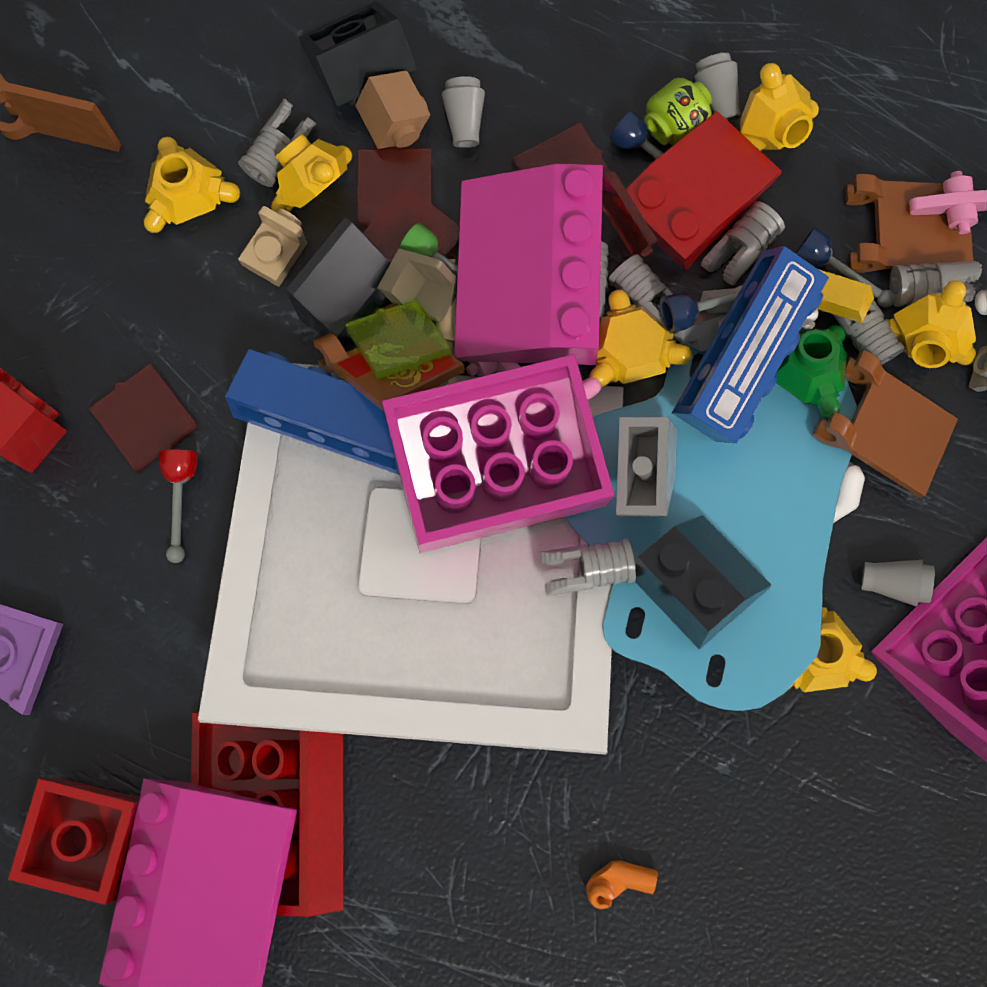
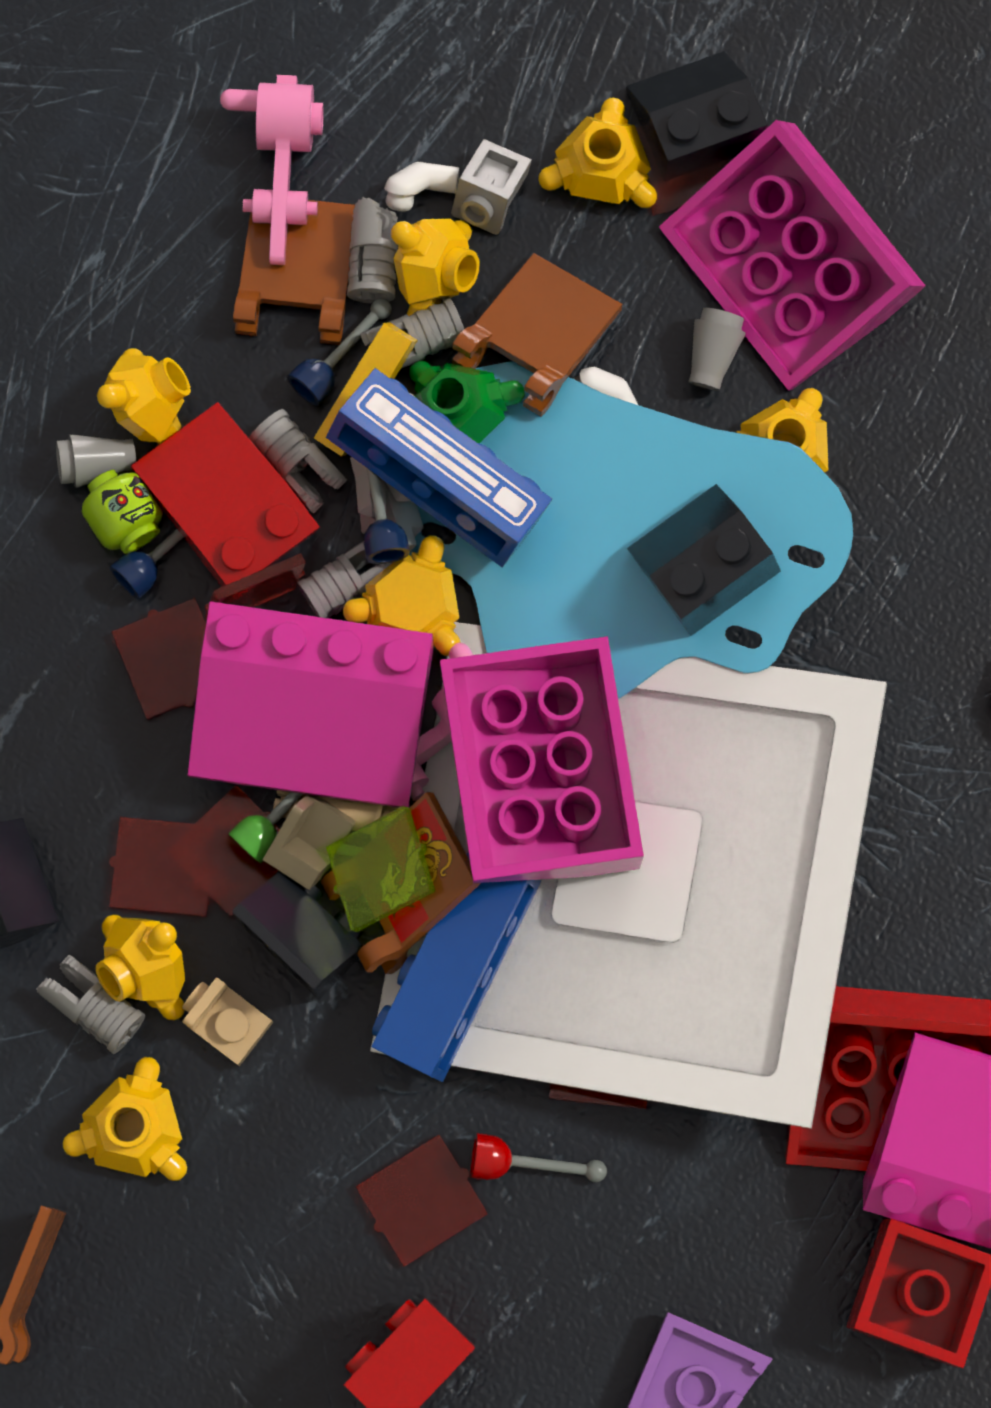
camera: 90 degrees left, 0 degrees up
(392, 109) = (74, 853): medium nougat brick -> none
(464, 107) = (79, 769): light grey cone -> none
(597, 566) = (678, 670): light grey hinge -> none
(645, 466) = (573, 601): light grey slope -> none

